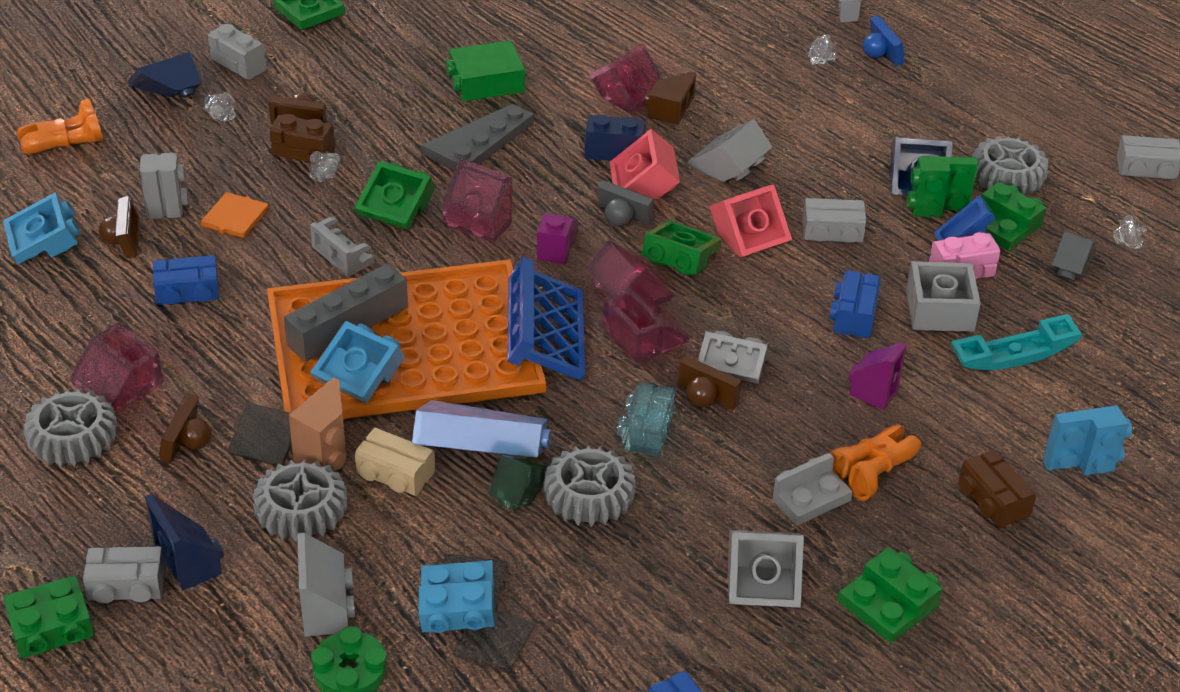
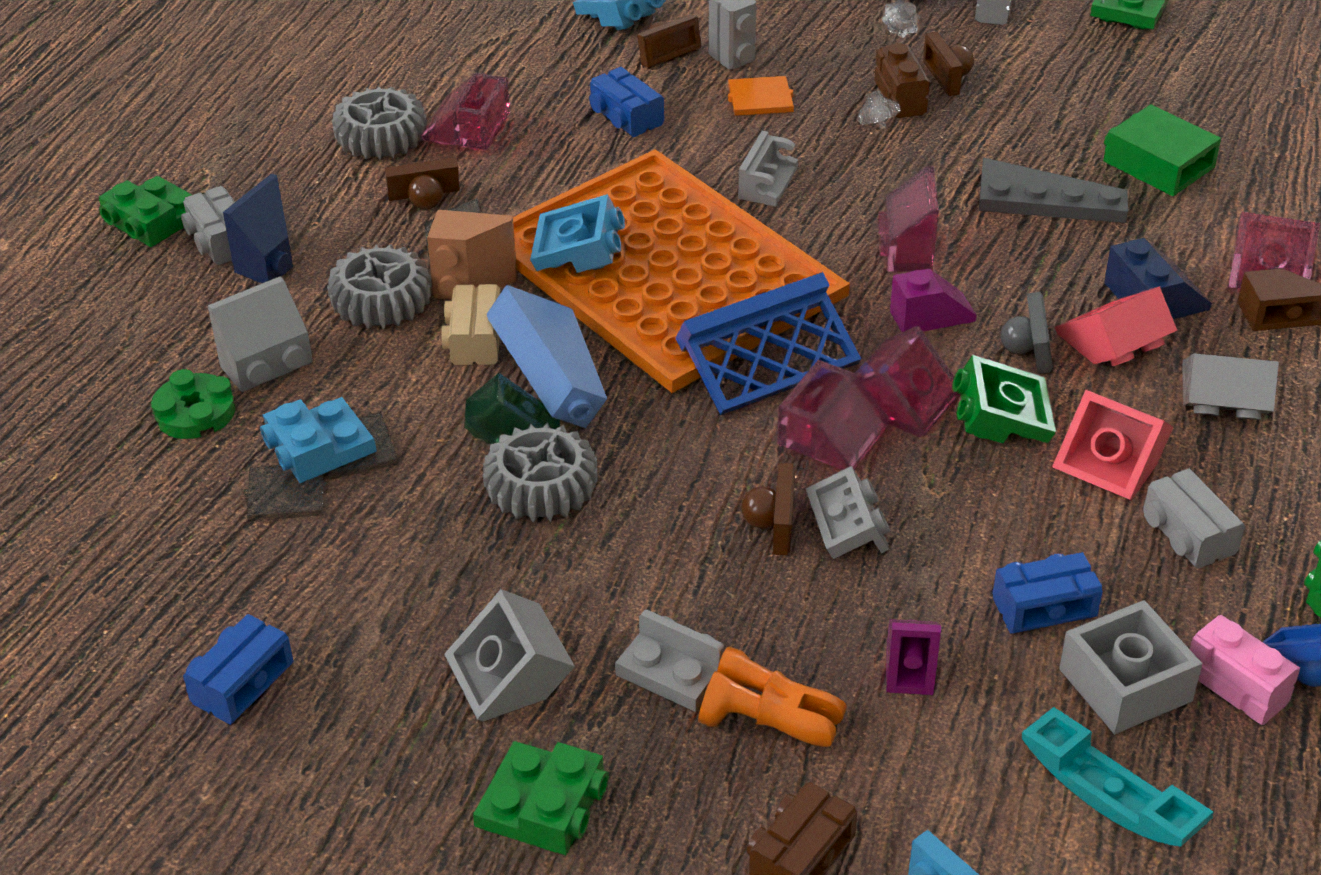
camera: 65 degrees right, 0 degrees up
(360, 301) = (649, 198): dark grey brick -> none
(395, 195) = (874, 167): green plate -> none
(647, 419) = (681, 480): clear light blue brick -> none

